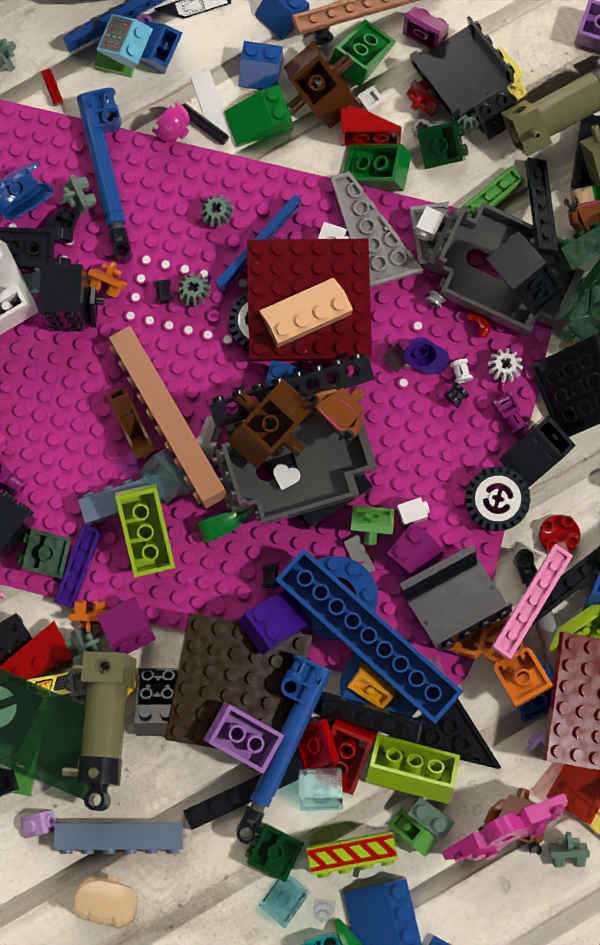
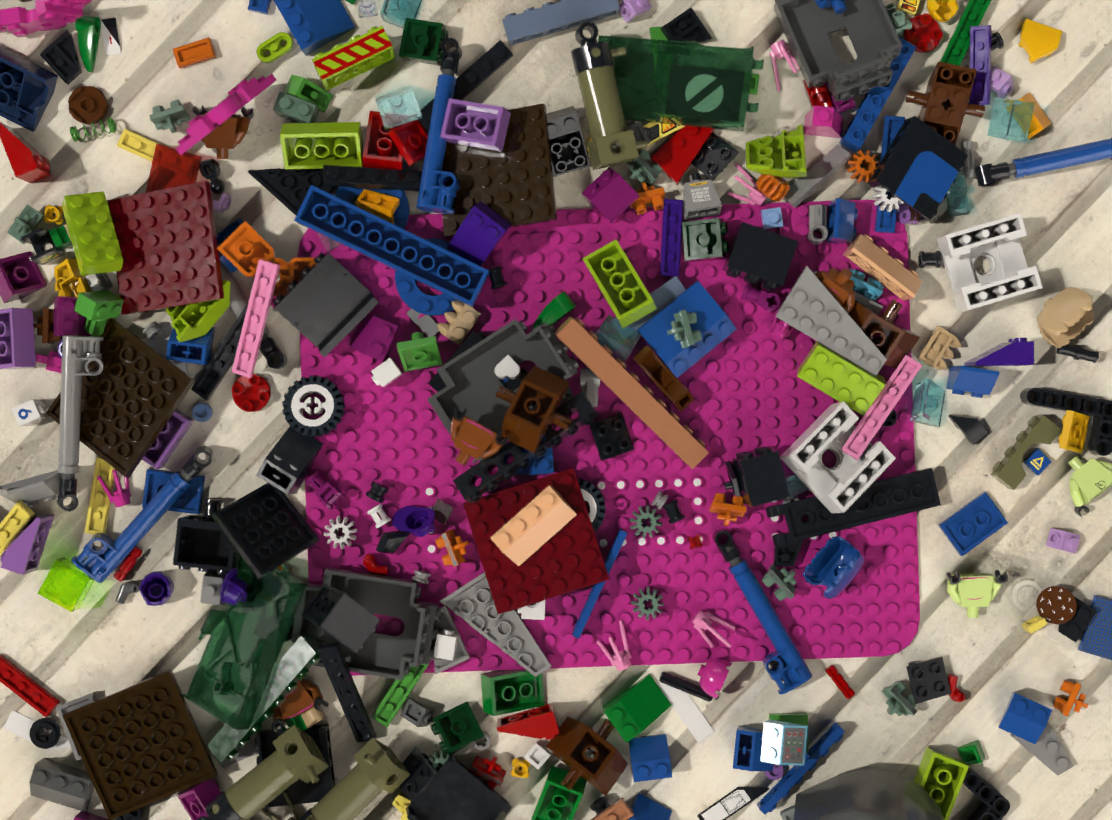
camera: 160 degrees right, 10 degrees up
(35, 598) = (700, 198): none -> light grey torso
(91, 465) = (711, 323): none -> blue slope
(95, 462) = (682, 330): none -> sand green hips
(151, 257) = (694, 541): none -> clear red piece
(168, 178) = (703, 621): none -> bright pink plant
(173, 306) = (659, 500): none -> light grey bush
(201, 382) = (611, 436): none -> black hinge
(260, 166) = (620, 659): none -> bright pink plant
(322, 541) = (459, 322): none -> tan plate
(391, 87) = (520, 773): none -> yellow plate
(393, 318) = (454, 546): none -> orange hips
(435, 893) = (274, 46): none -> lime plate
(456, 342) = (391, 541): none -> black piece
(478, 171) = (417, 713): none -> dark grey bracket
(524, 915) = (194, 53): none -> orange tile
(540, 775) = (217, 186): none -> black plate

